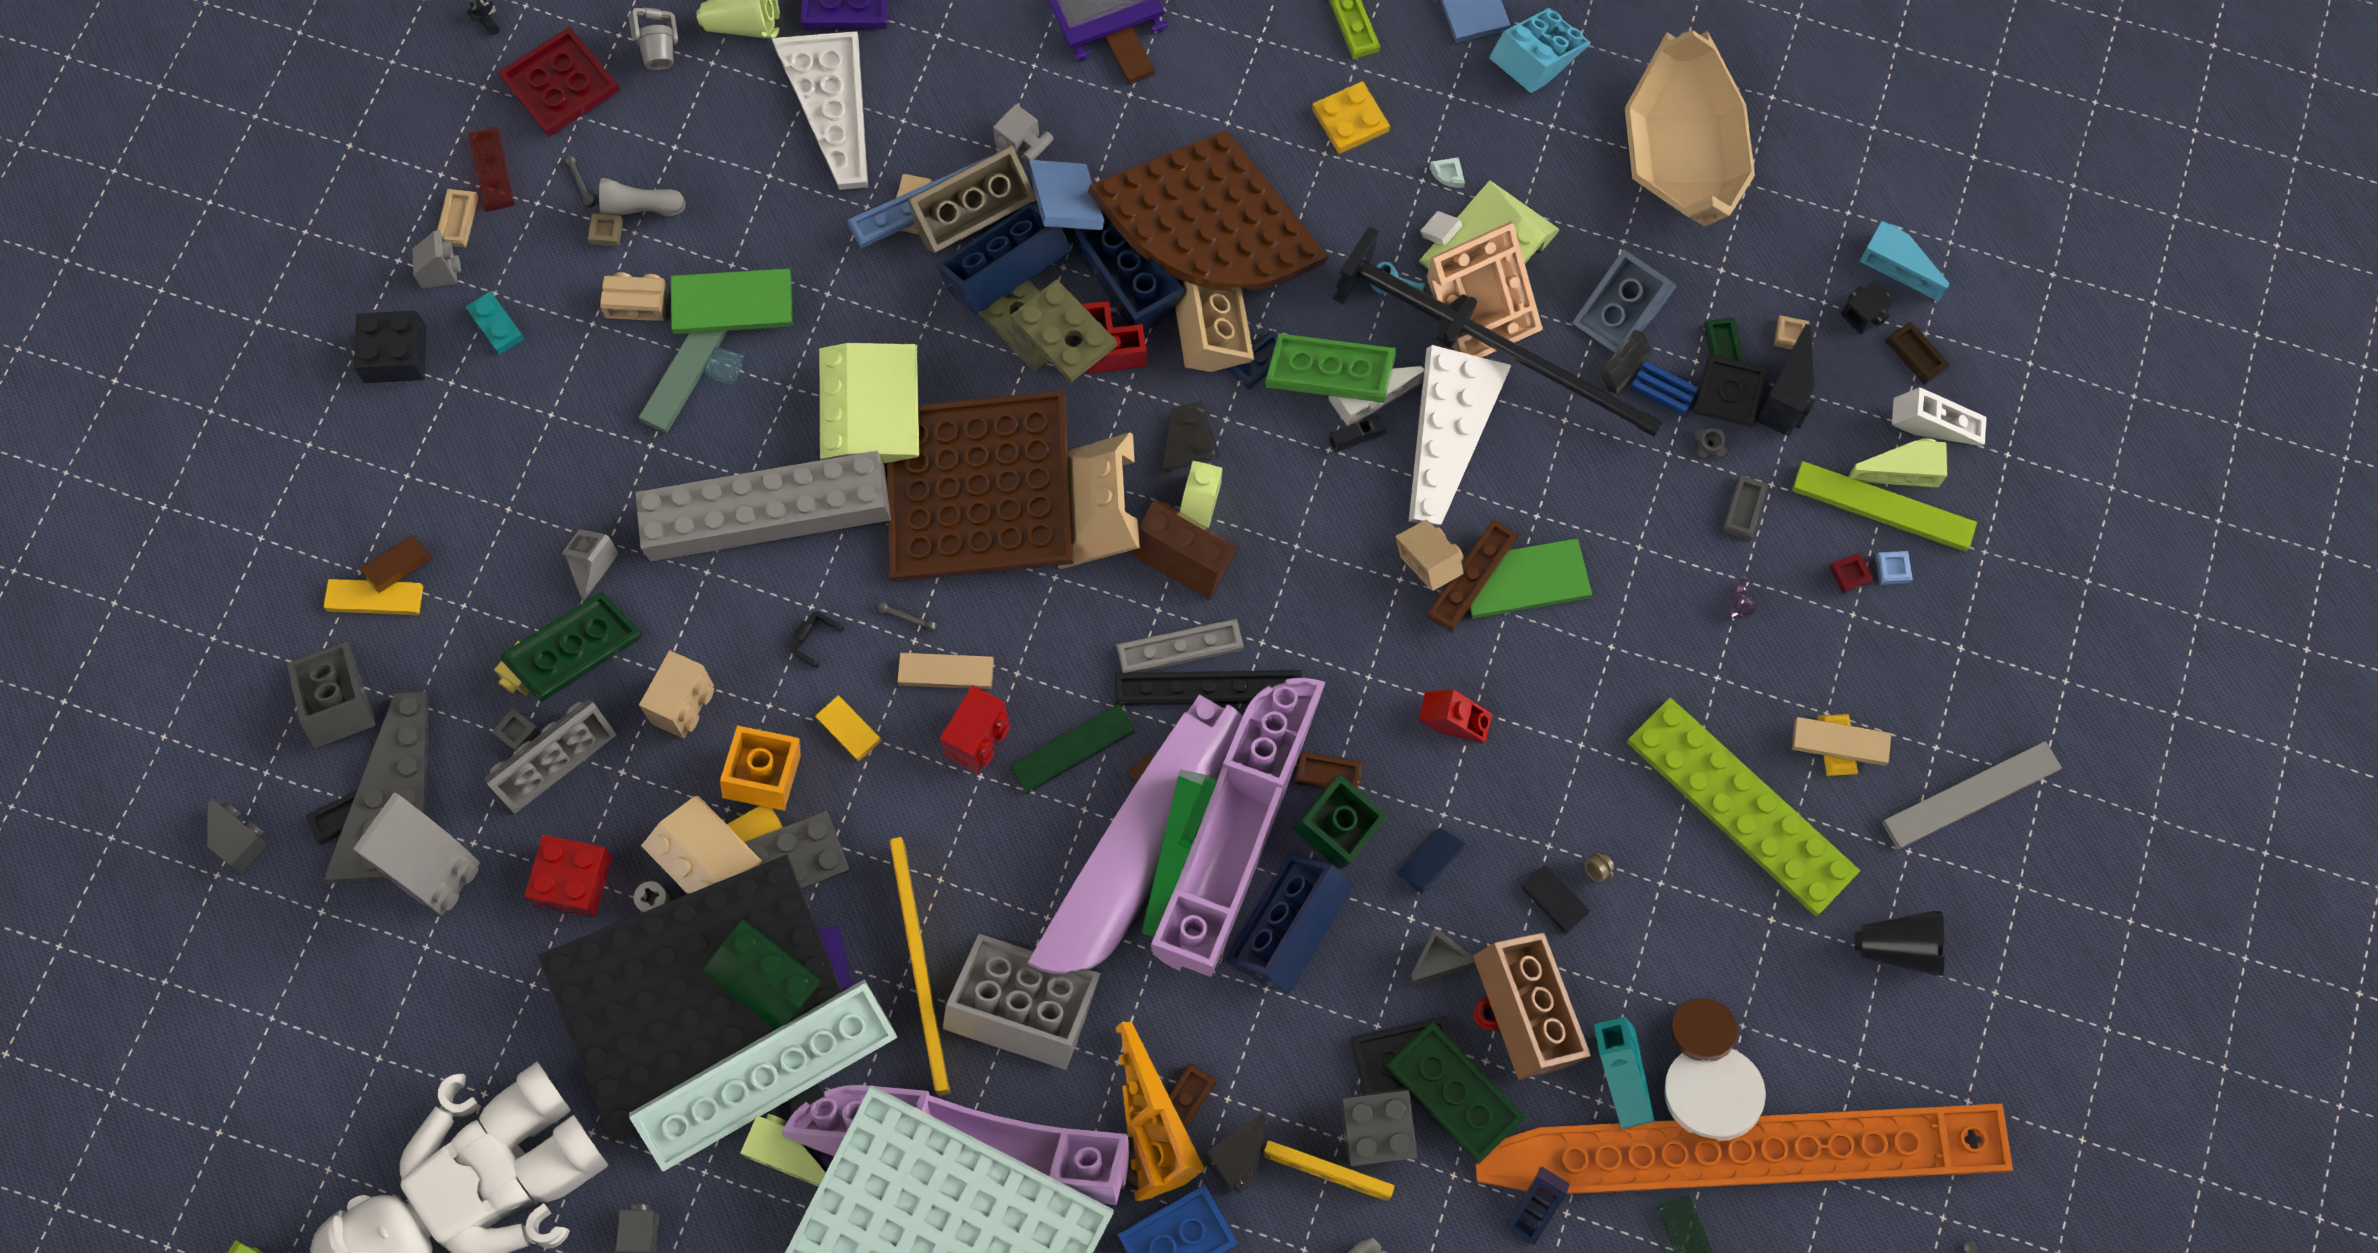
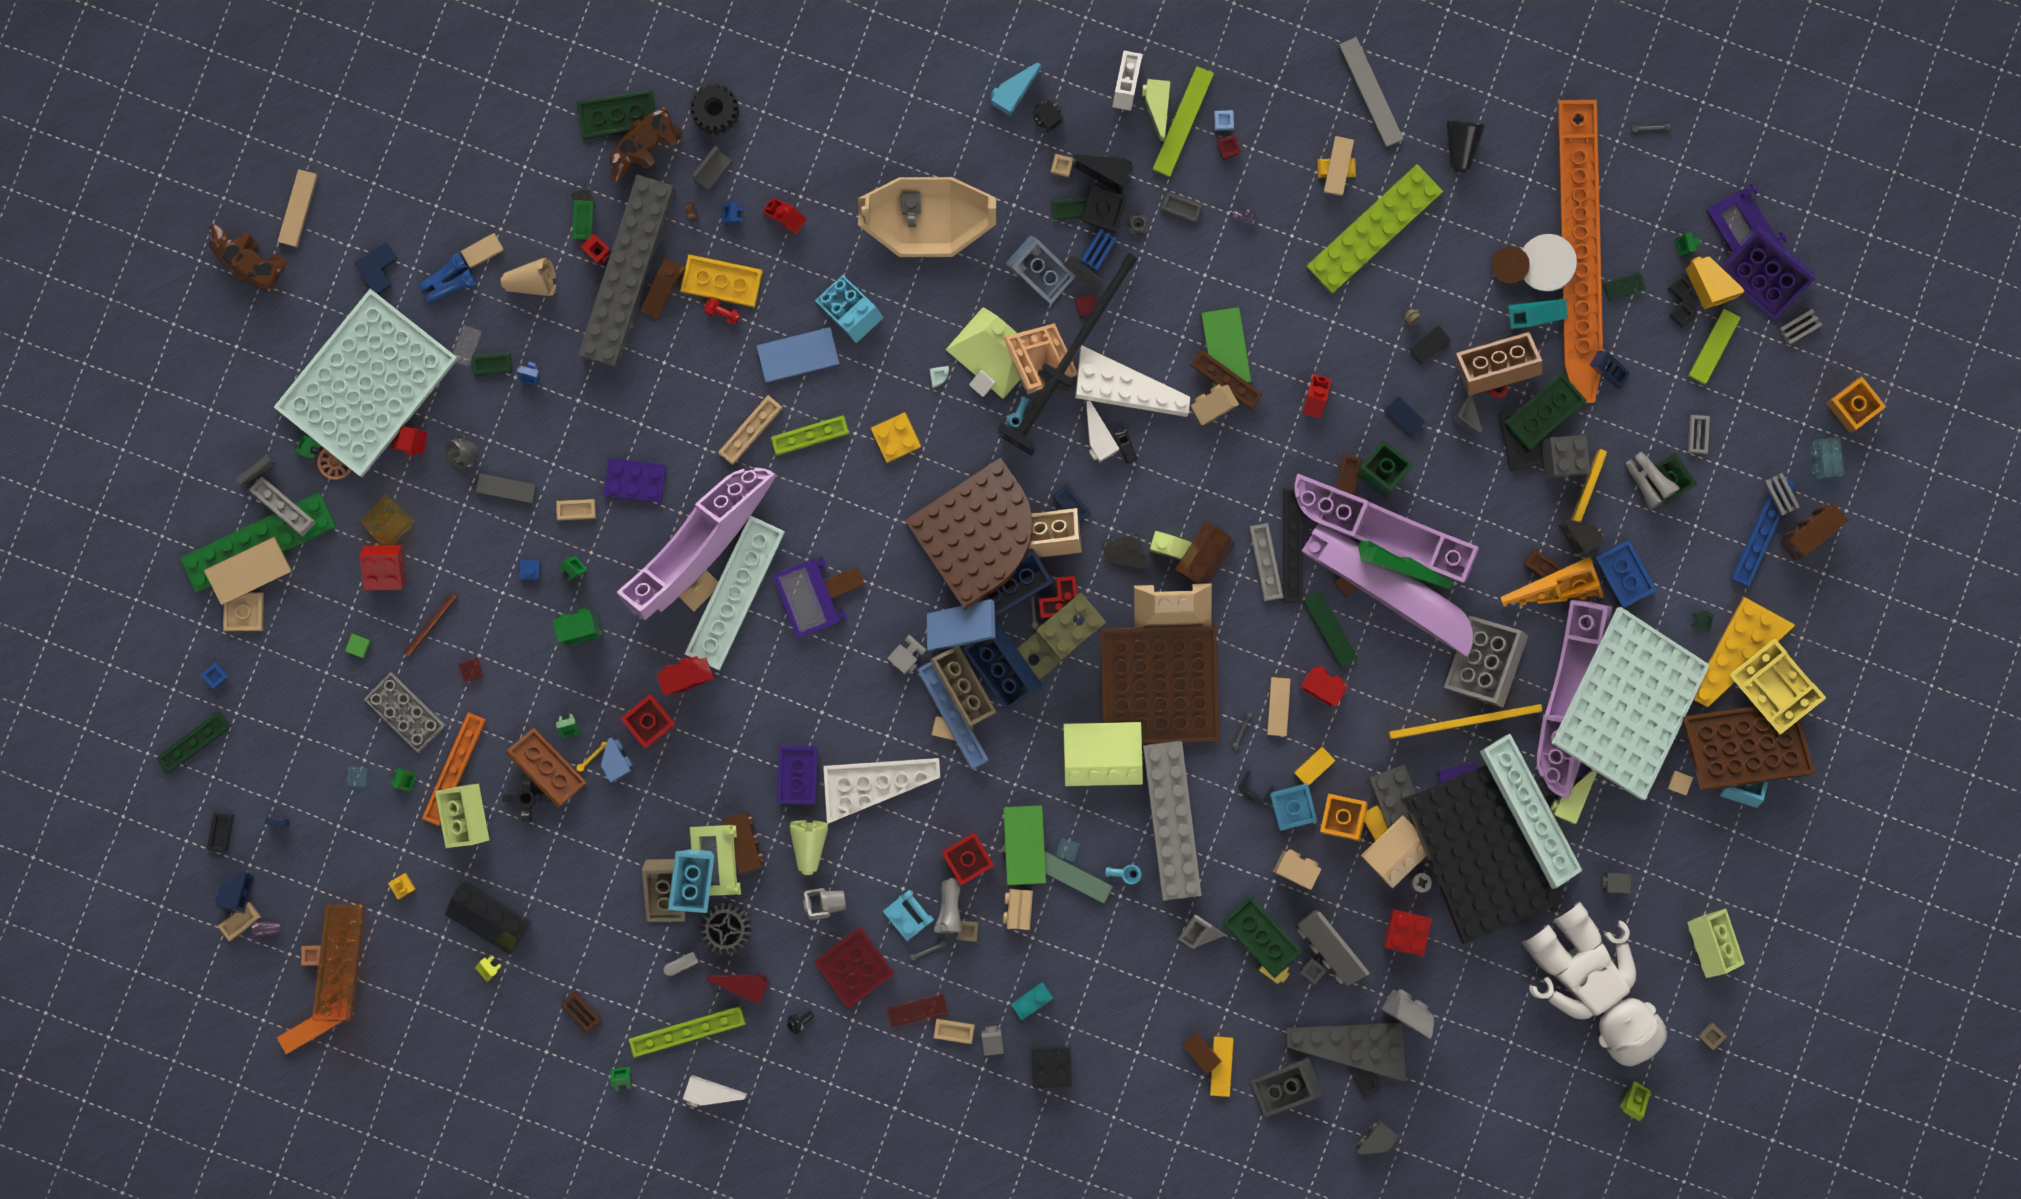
camera: 85 degrees left, 15 degrees up
(628, 146) = (903, 919): none -> medium azure plate
(682, 451) = (1125, 873): none -> medium azure bar
(712, 221) = (968, 858): none -> red brick
(761, 975) = (1477, 810): dark green slope -> none
(782, 693) = (1293, 807): none -> dark azure plate
(1290, 922) = (1442, 502): dark blue slope -> none
(1331, 367) = (1086, 459): bright green tile -> none
(1577, 366) = (1085, 305): none -> dark red tile
(1703, 124) = (911, 205): none -> dark grey plate
(1917, 353) = (1078, 87): dark brown tile -> none

